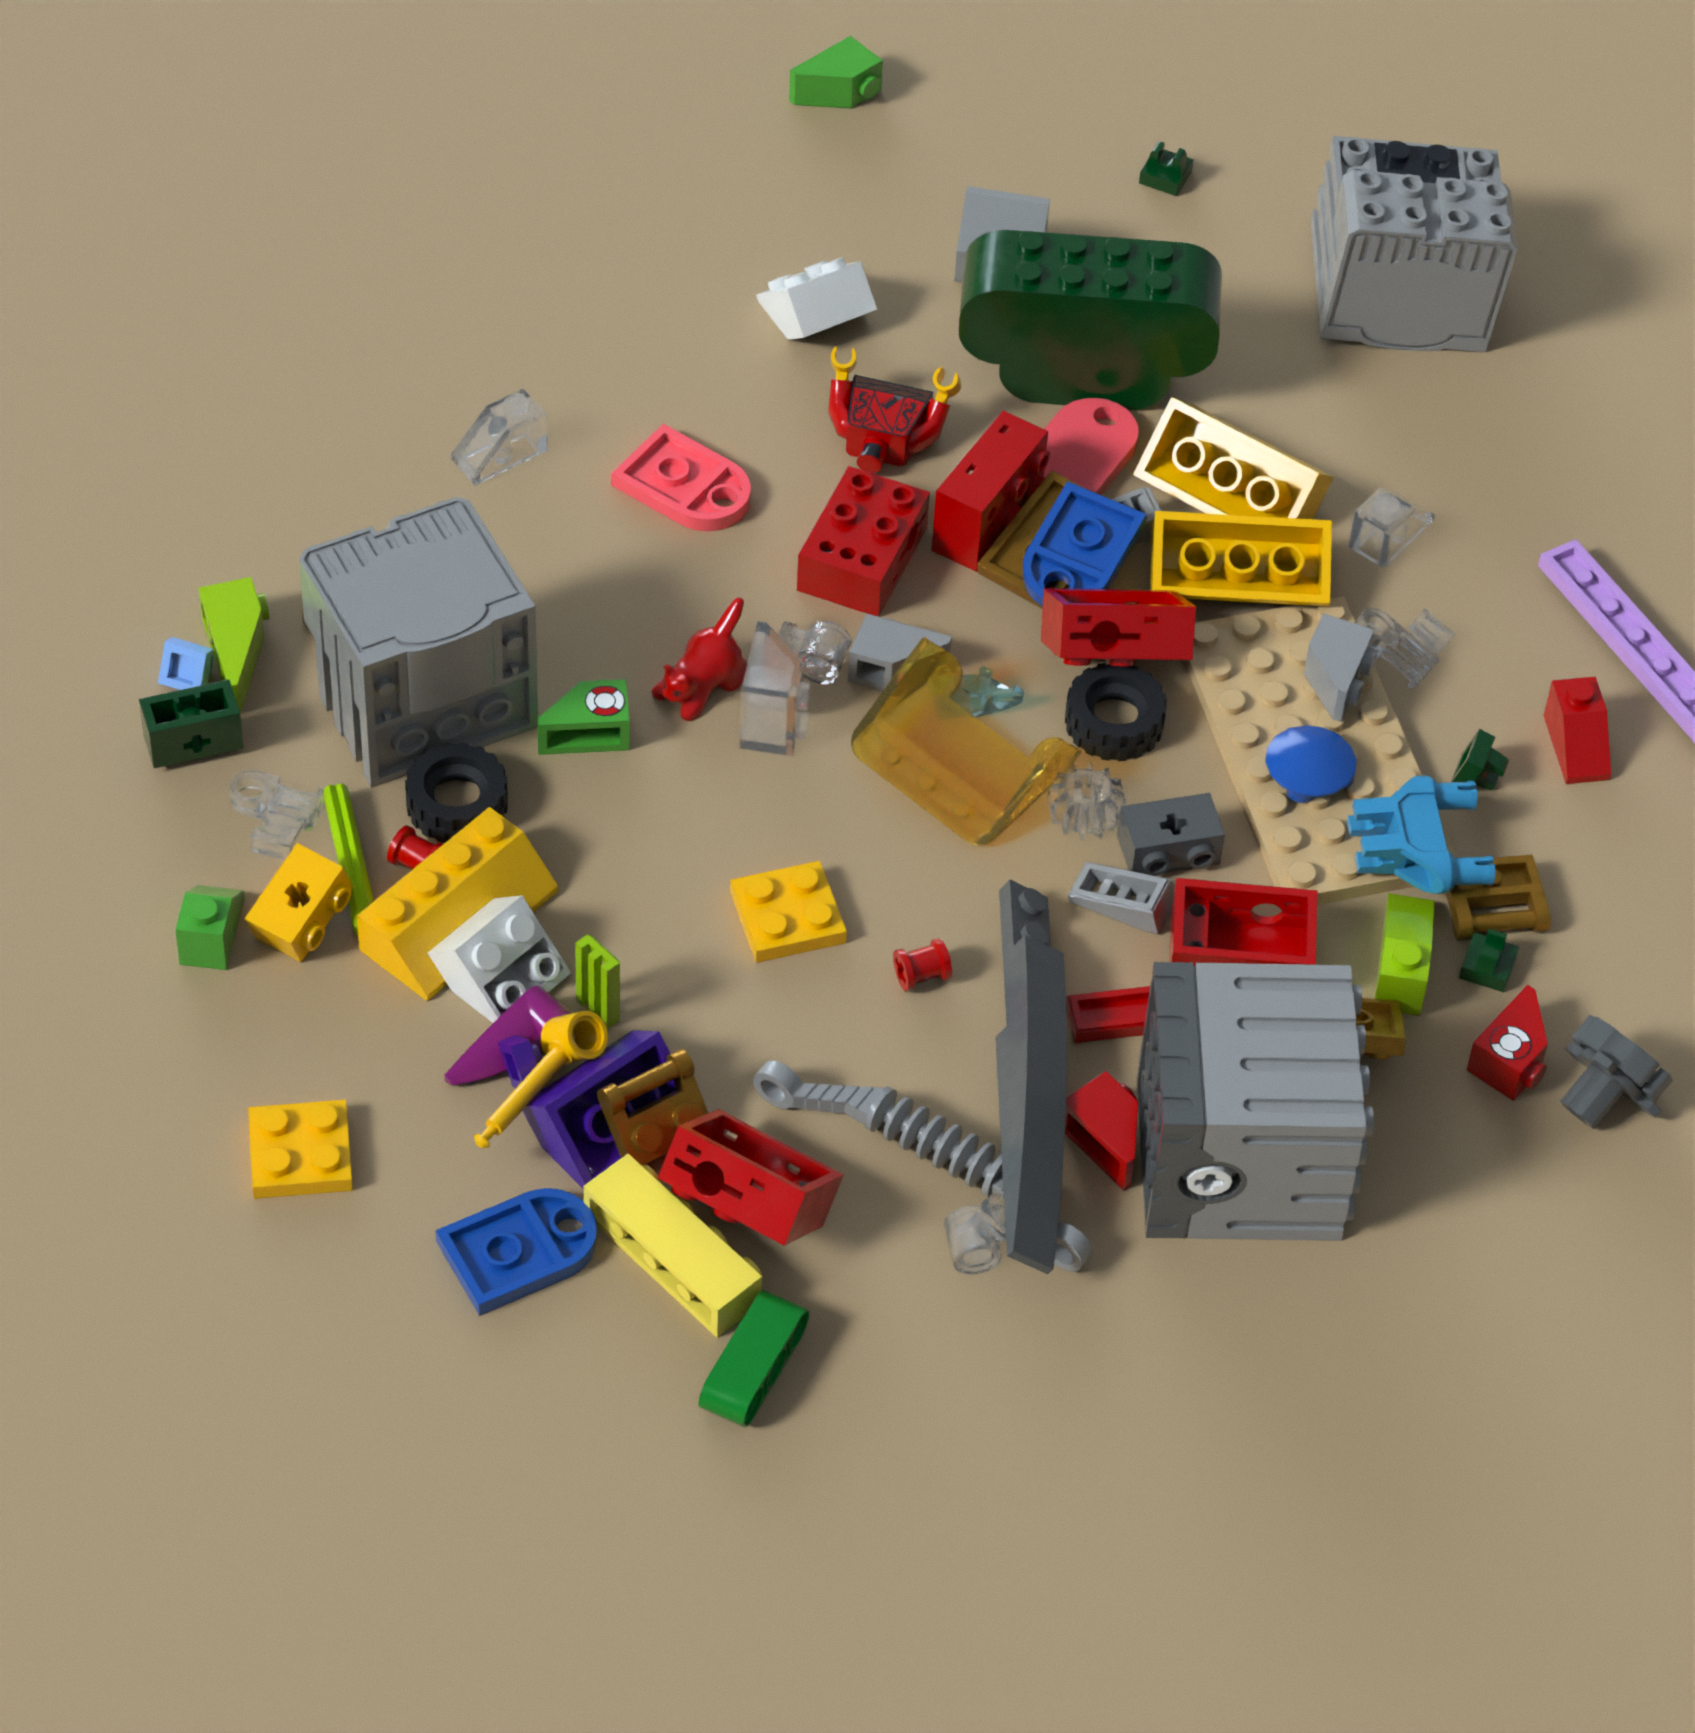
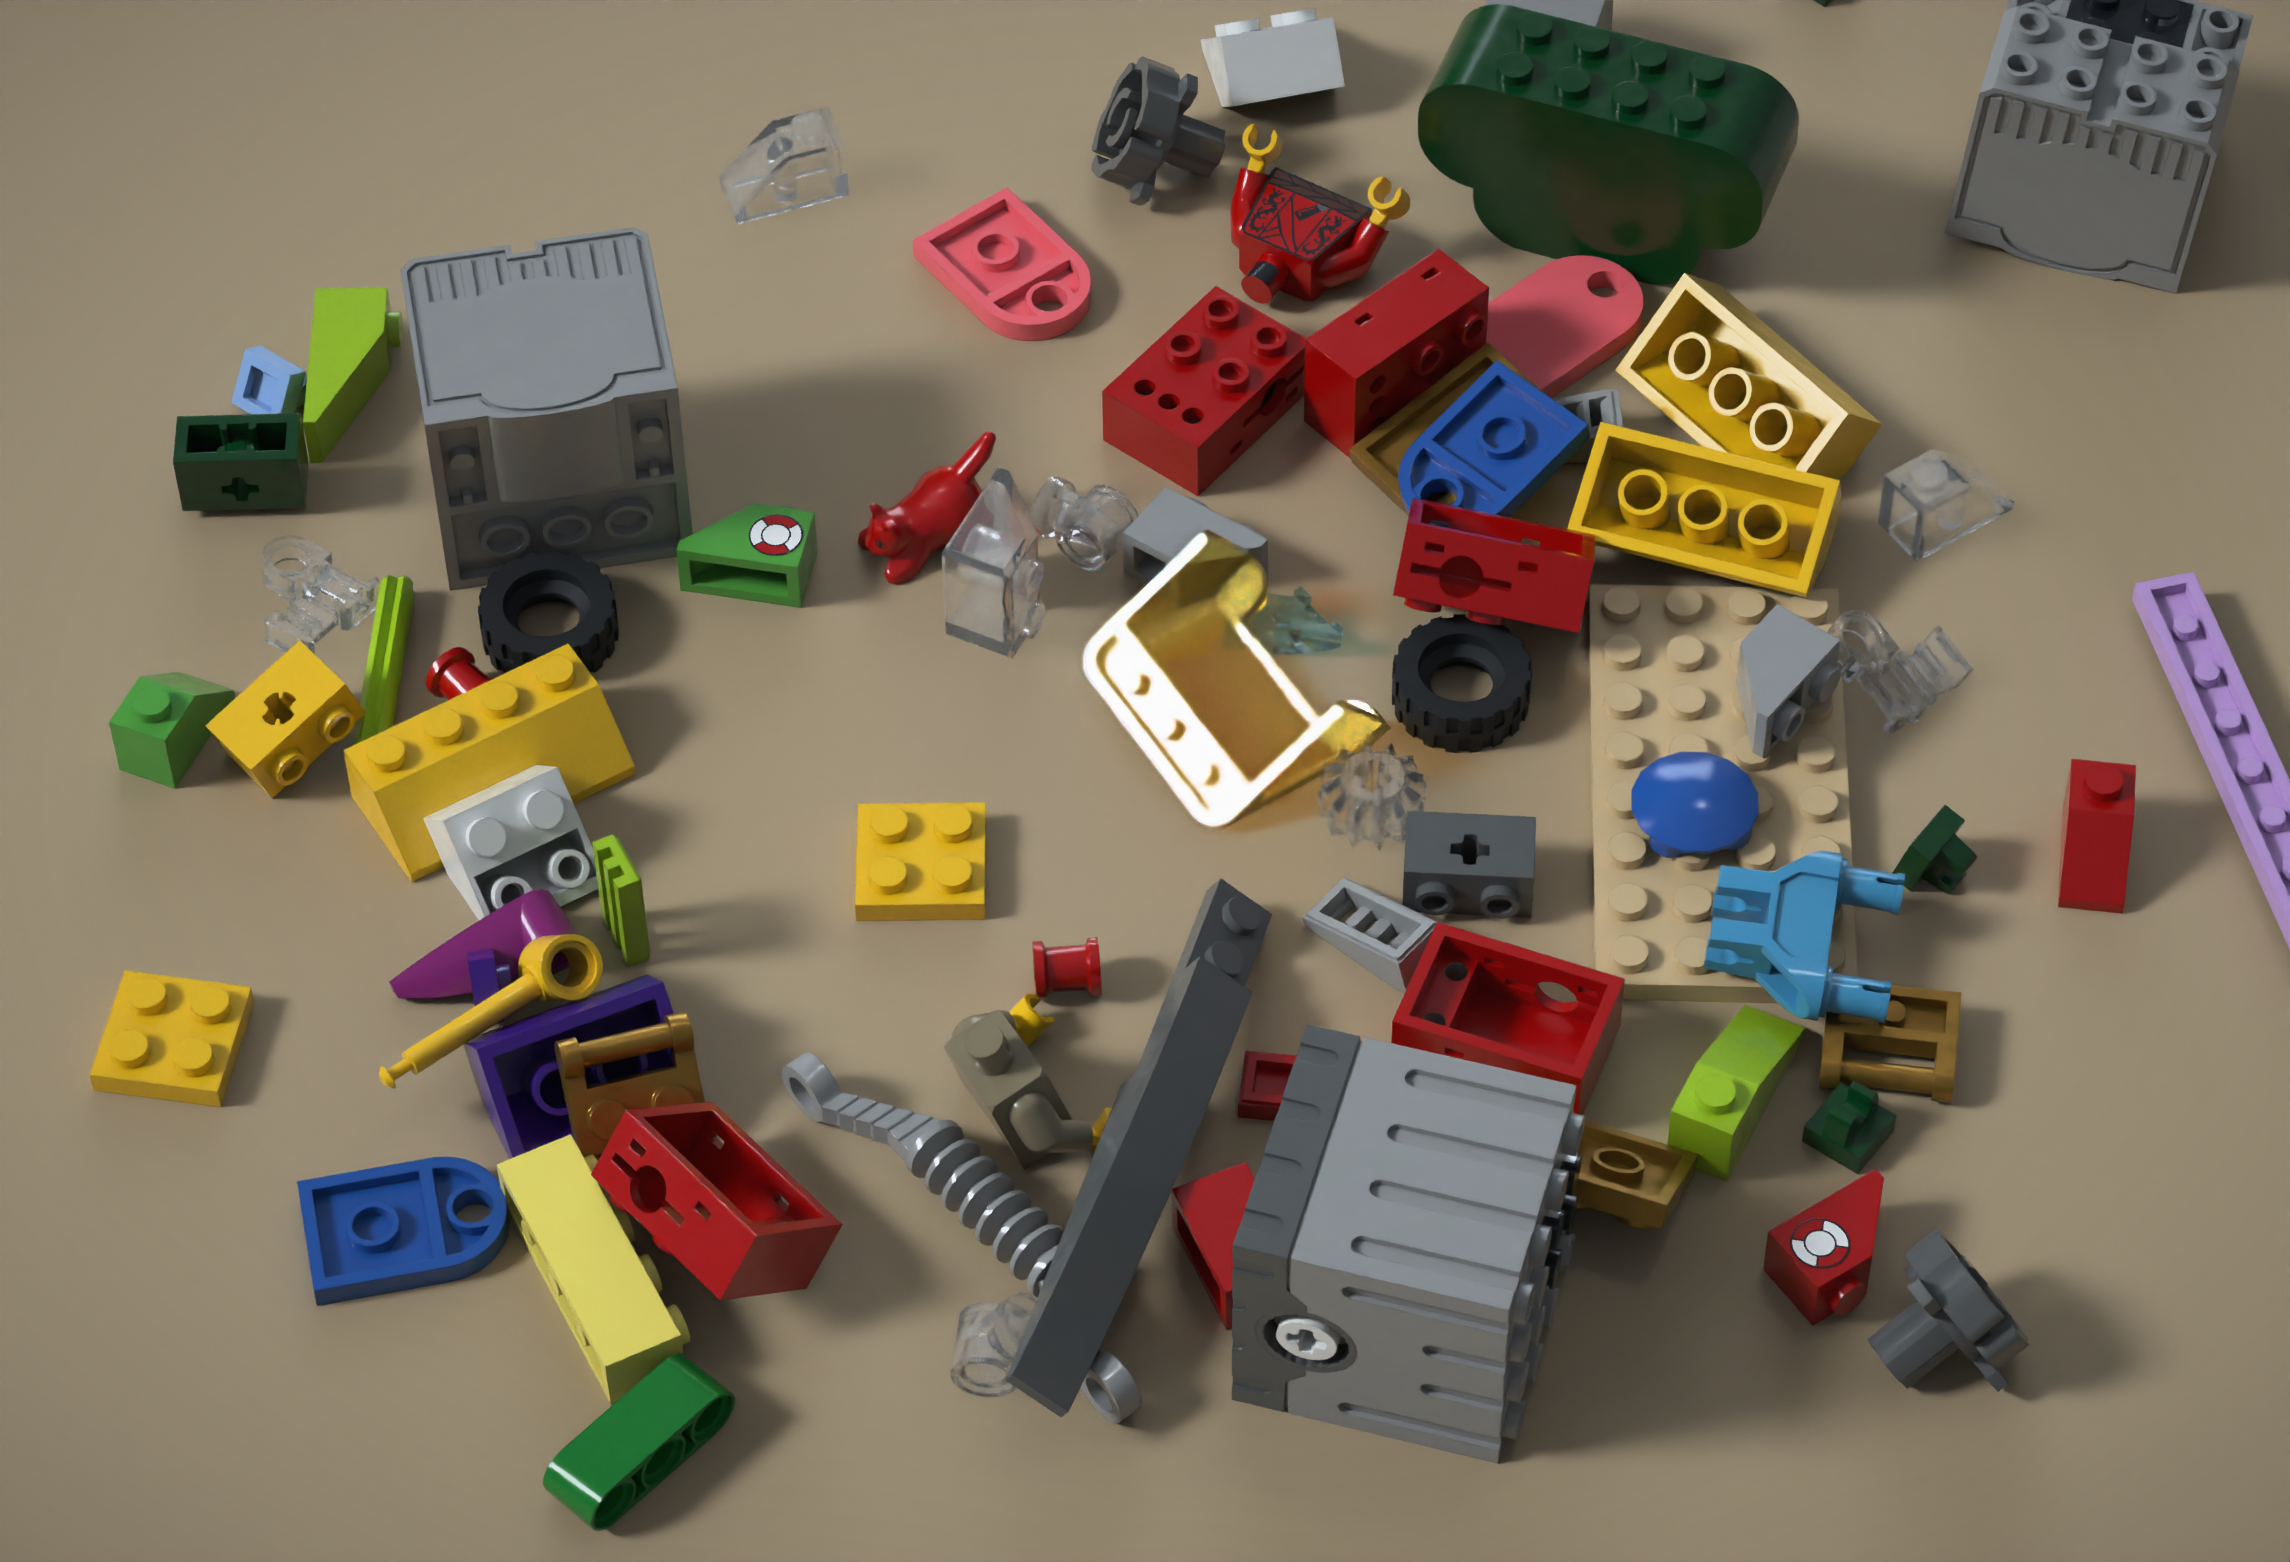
camera: 20 degrees right, 0 degrees up
(756, 364) = (1148, 127): none -> dark grey piece
(925, 1052) = (1013, 1087): none -> dark tan torso

